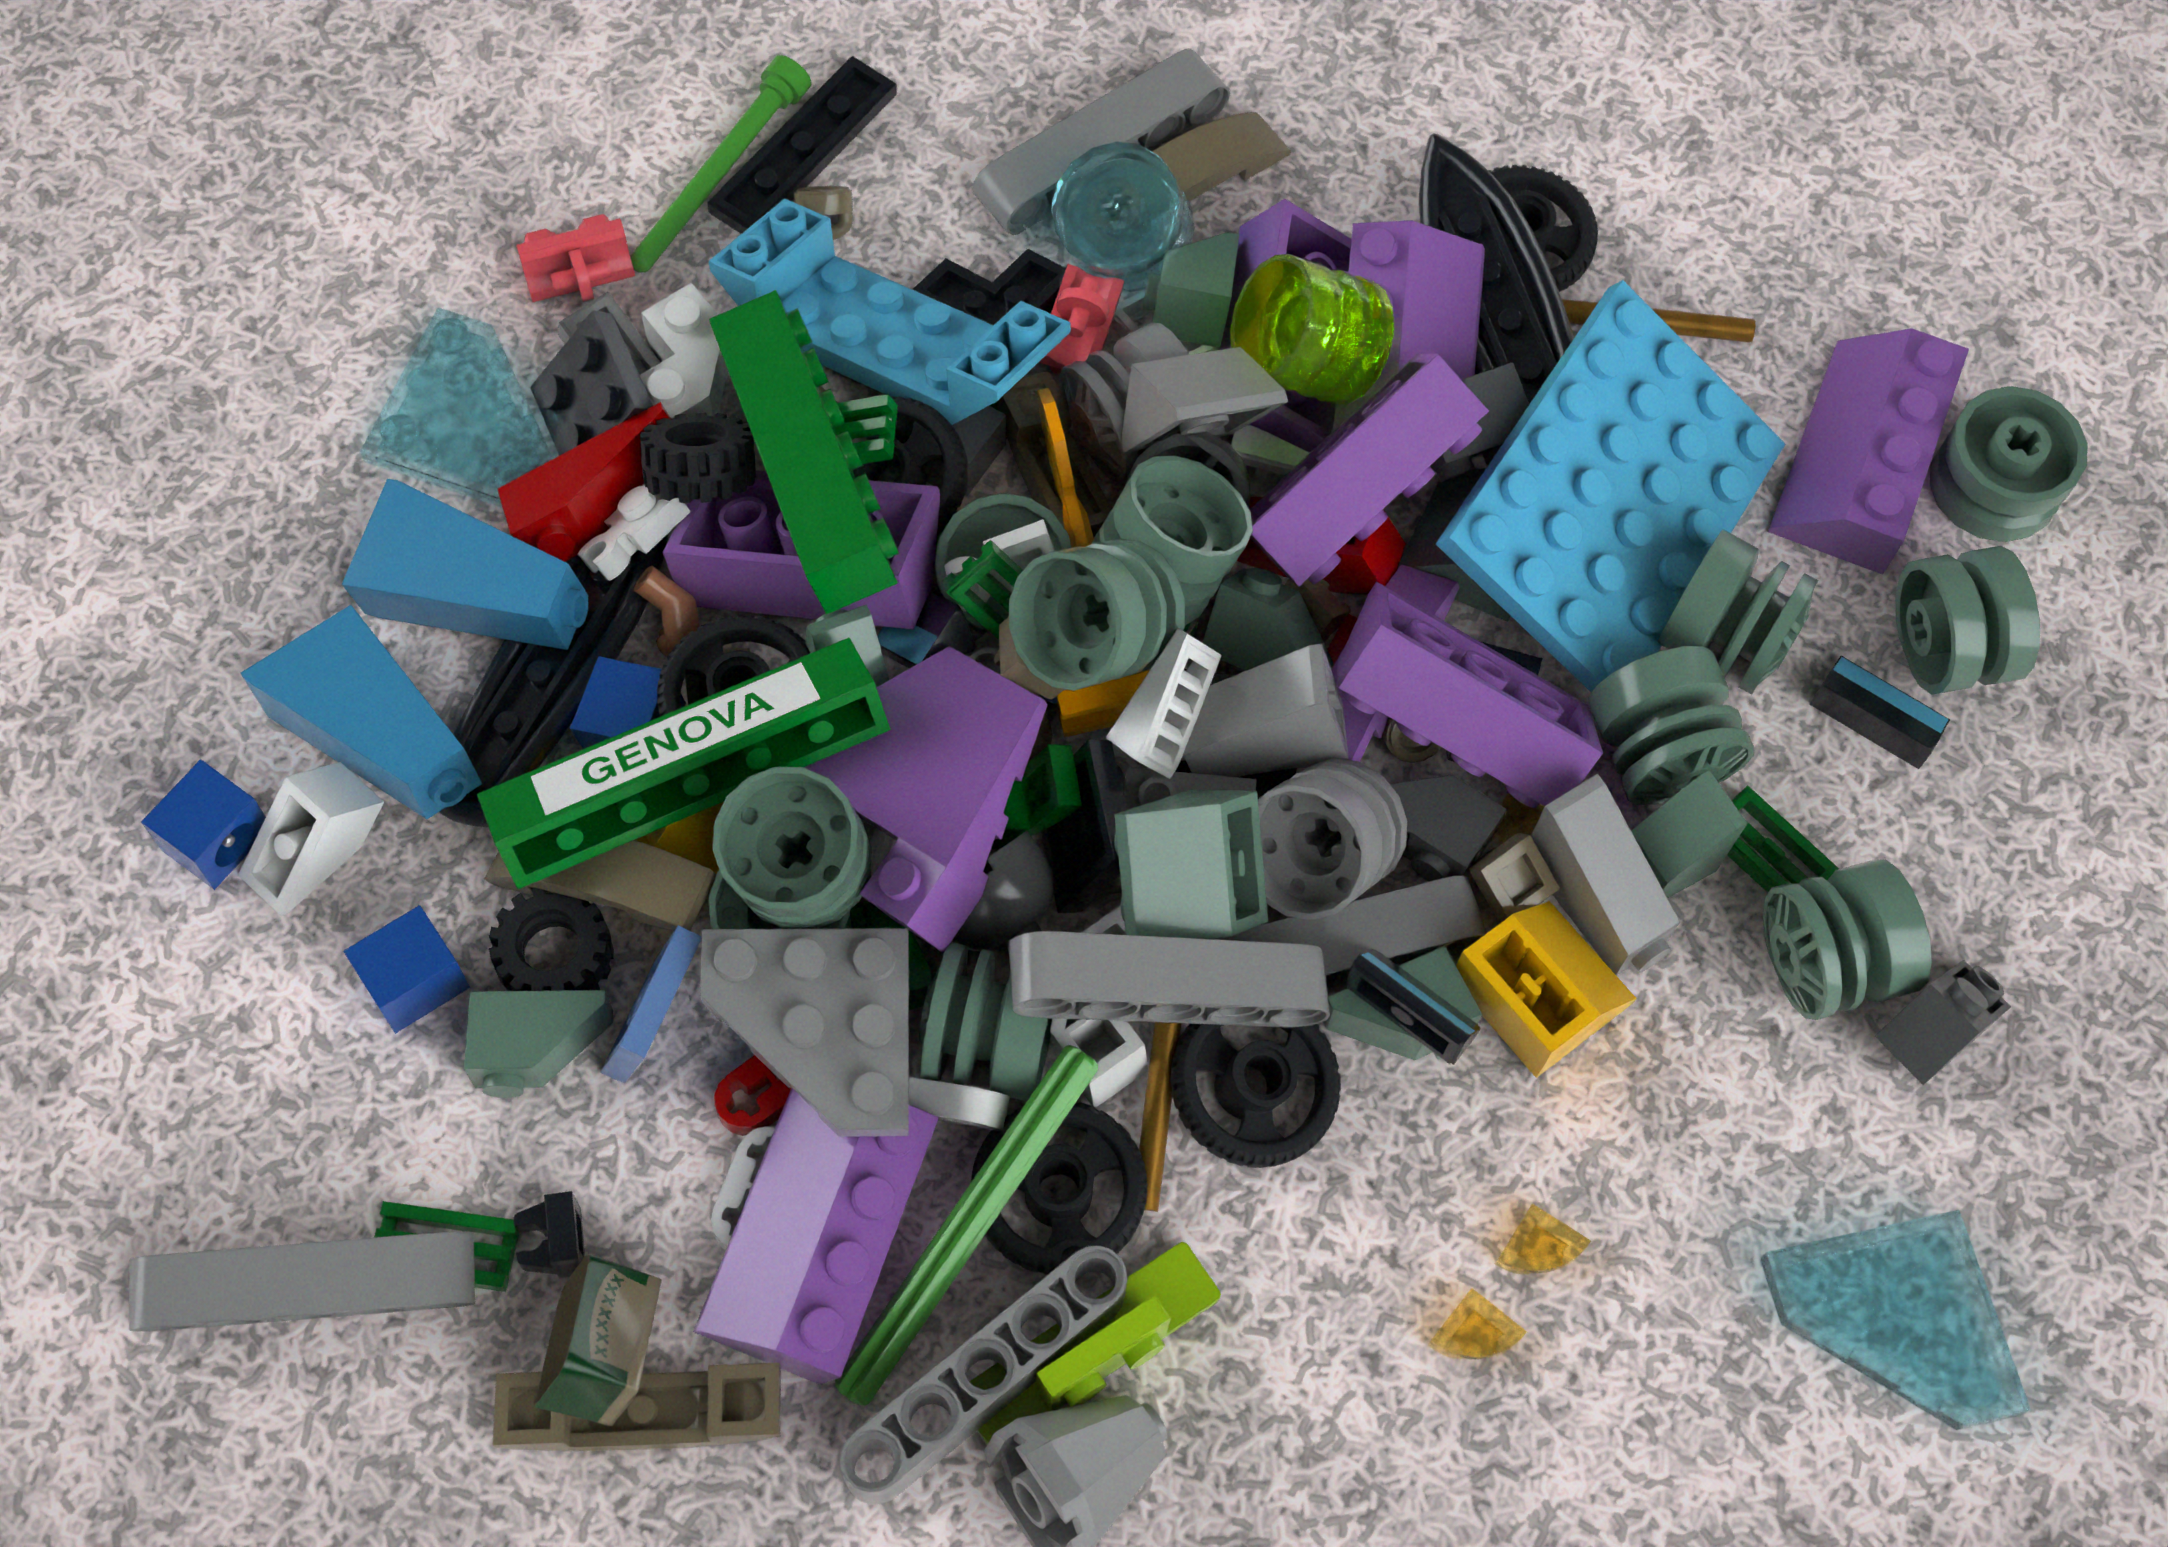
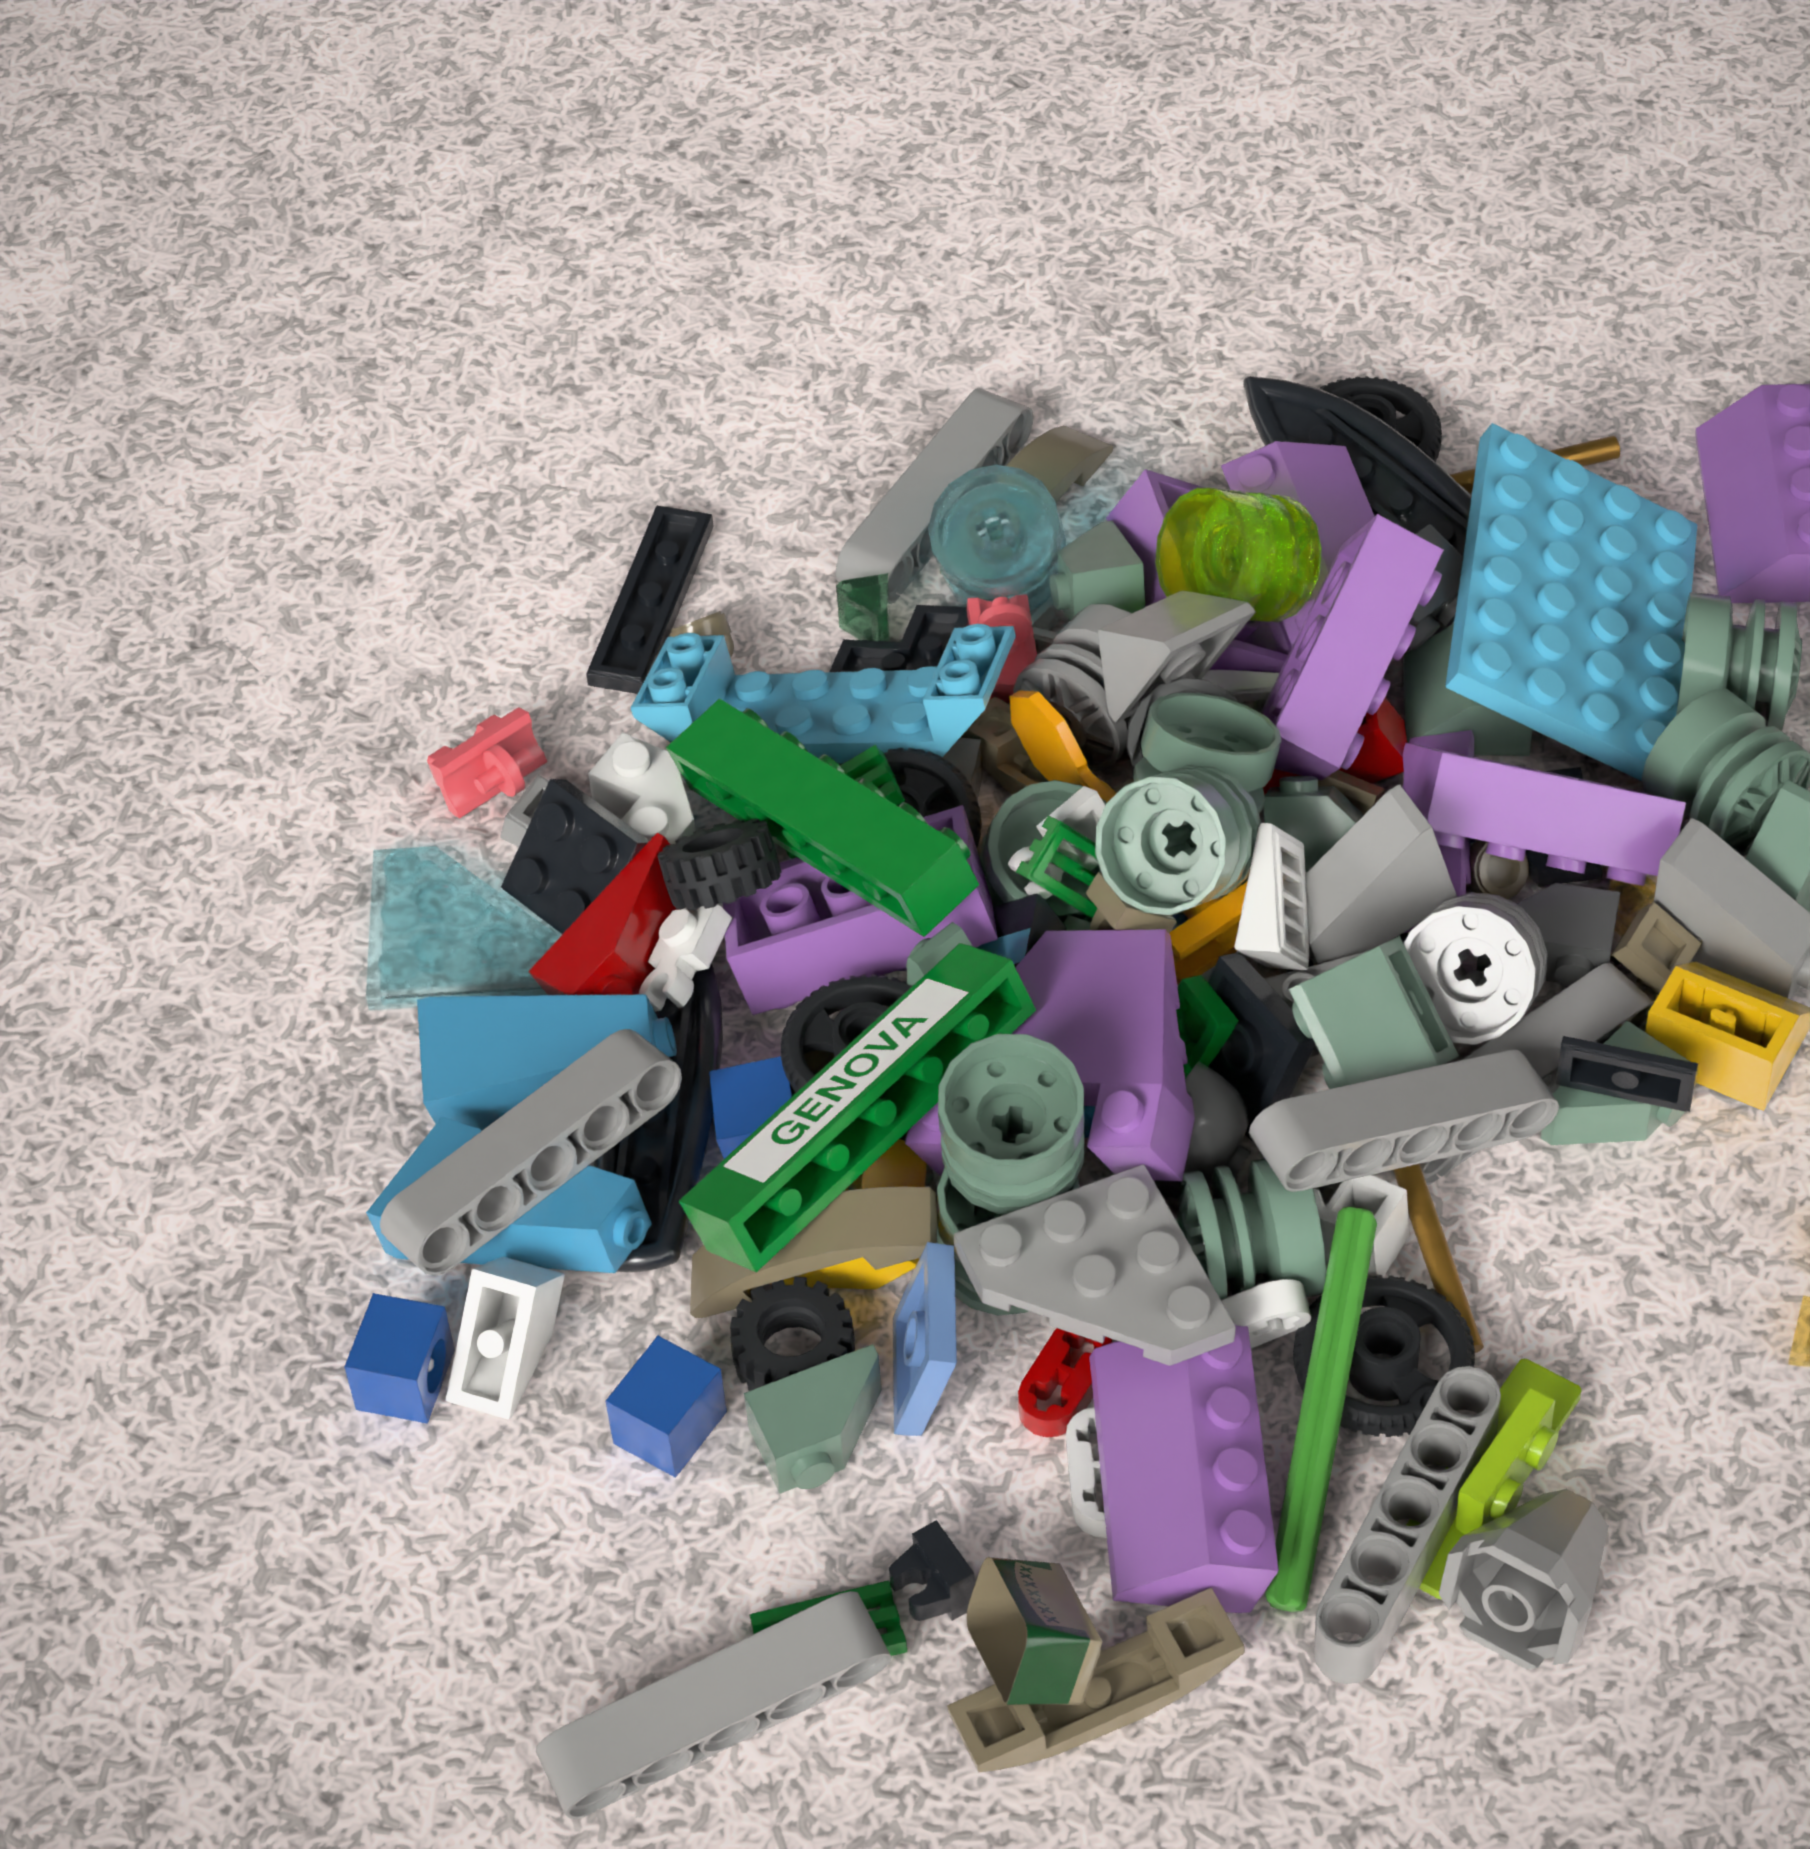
camera: 15 degrees left, 15 degrees down
(386, 683) = (530, 1151): none -> light grey beam
(676, 604) = (753, 1012): nougat arm -> none
(782, 84) = (603, 552): bright green piece -> none
(982, 235) = (865, 607): none -> clear green slope
(1257, 1139) = (1513, 1207): black wheel -> none

